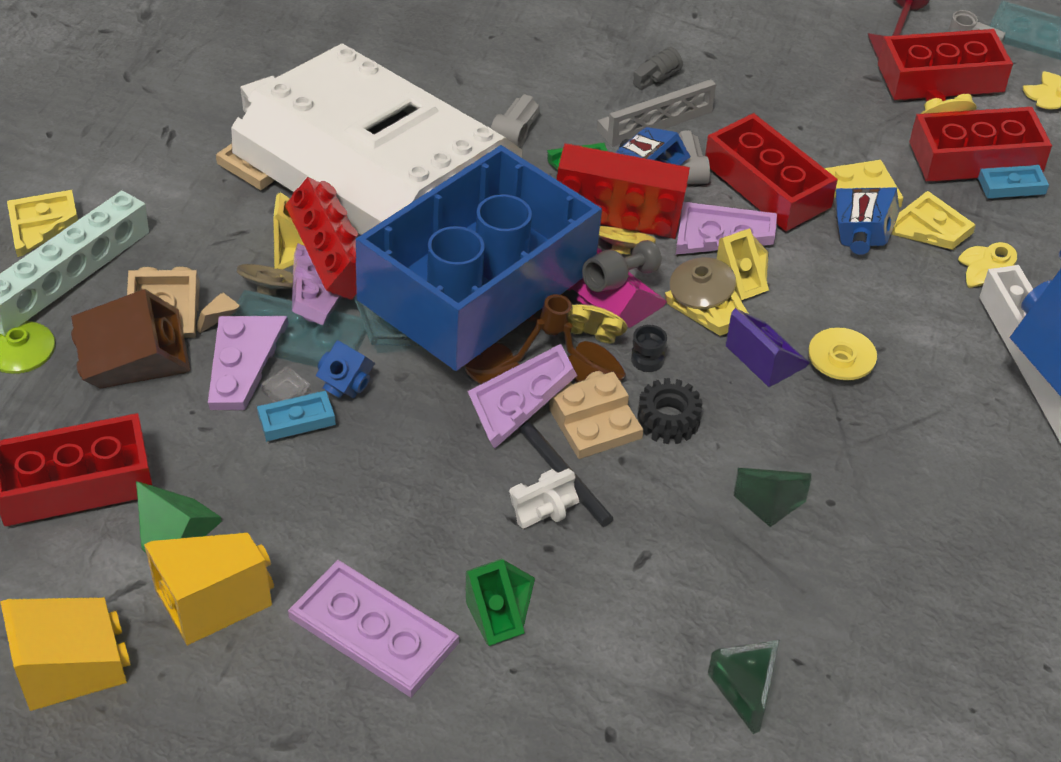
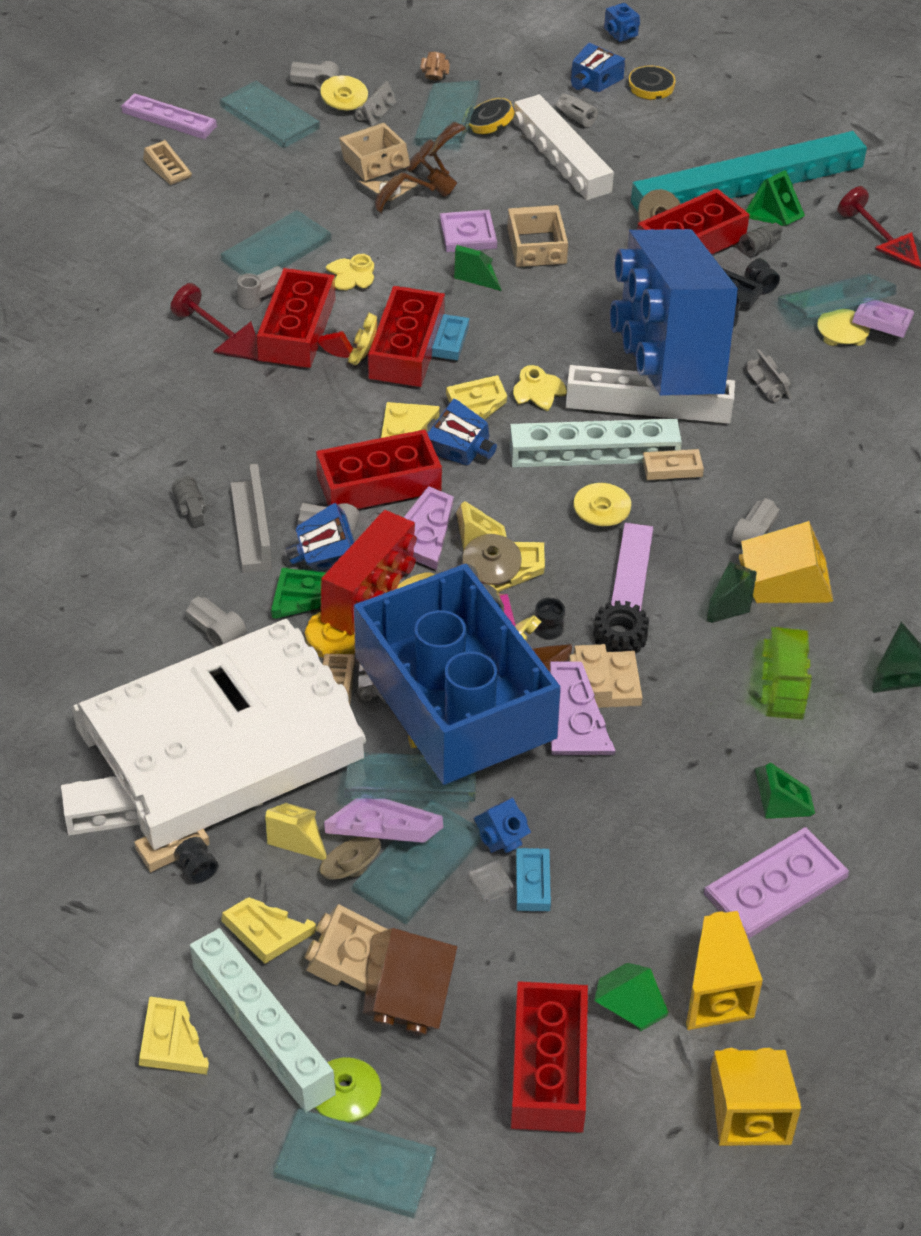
camera: 70 degrees left, 0 degrees up
(172, 242) = (265, 928): none -> light yellow wing
(220, 306) = (380, 907): tan slope -> none
(235, 180) = (197, 862): none -> black wheel
(240, 356) = (448, 904): lavender wing -> none
(326, 235) = (347, 786): red brick -> none
(545, 498) = (680, 722): white hips -> none
(556, 462) = (661, 715): black bar -> none
(676, 566) = (786, 673): none -> clear neon green wedge
(762, 348) = (577, 551): dark purple slope -> none
(768, 405) = (632, 564): none -> lavender tile
(846, 539) = (788, 566): none -> yellow slope
(889, 497) = (757, 522): none -> light grey piece
(936, 330) = (591, 442): none -> light aqua brick
(950, 403) = (672, 464): none -> tan plate

